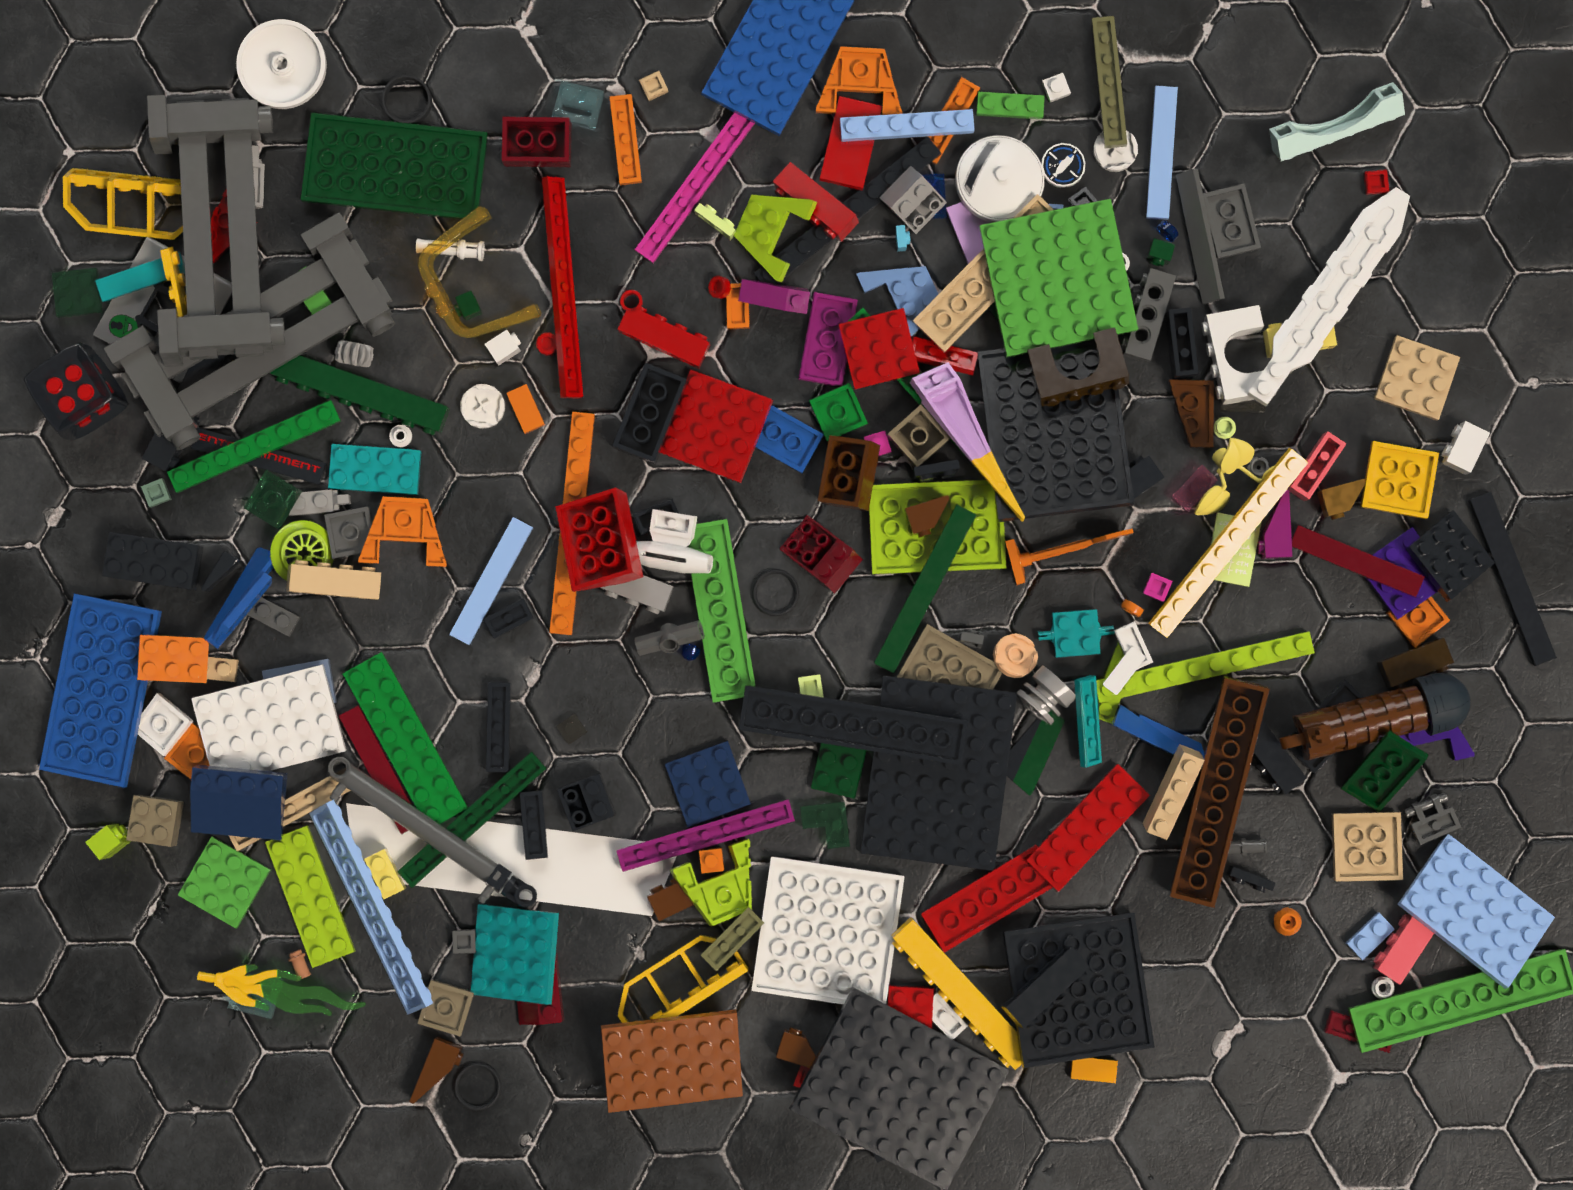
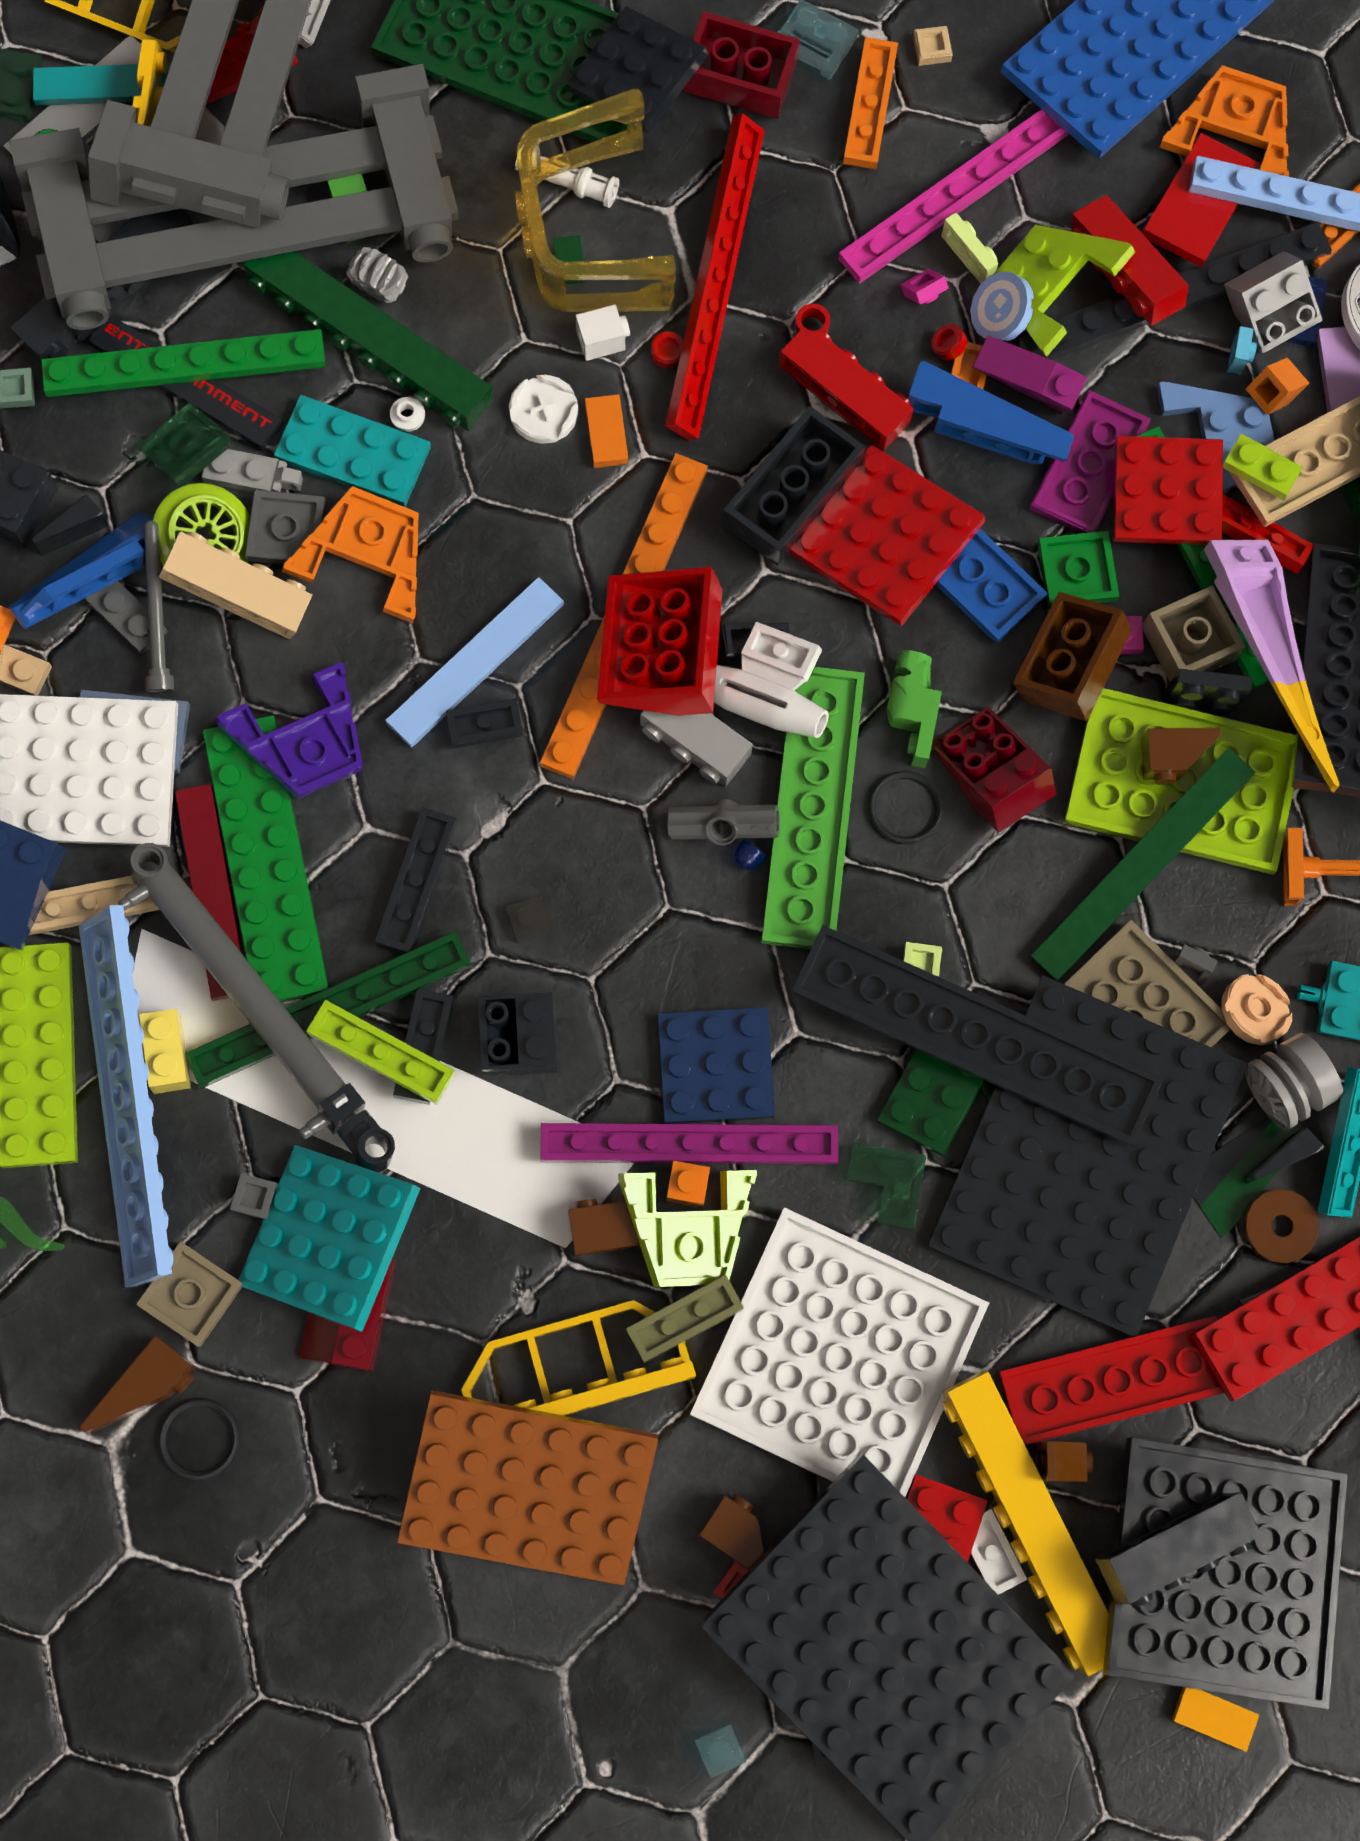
camera: 10 degrees right, 10 degrees down
(305, 649) = (158, 676): none -> dark grey piece
(411, 667) = (310, 750): none -> dark purple wing
(473, 168) = (641, 57): none -> black plate
(510, 838) = (380, 1052): none -> lime plate
(694, 255) = (924, 287): none -> dark pink plate
(745, 256) = (1002, 306): none -> light blue tile
(754, 332) = (985, 419): none -> blue wedge
(762, 530) = (914, 704): none -> bright green plate
(822, 1169) = (720, 1750): none -> clear light blue plate
(929, 257) = (1277, 386): none -> orange brick
(932, 317) = (1262, 467): none -> lime plate
(970, 954) = (1063, 1461): none -> reddish brown slope
(1056, 735) = (1295, 1148): none -> black slope
(1071, 789) = (1301, 1221): none -> reddish brown tile

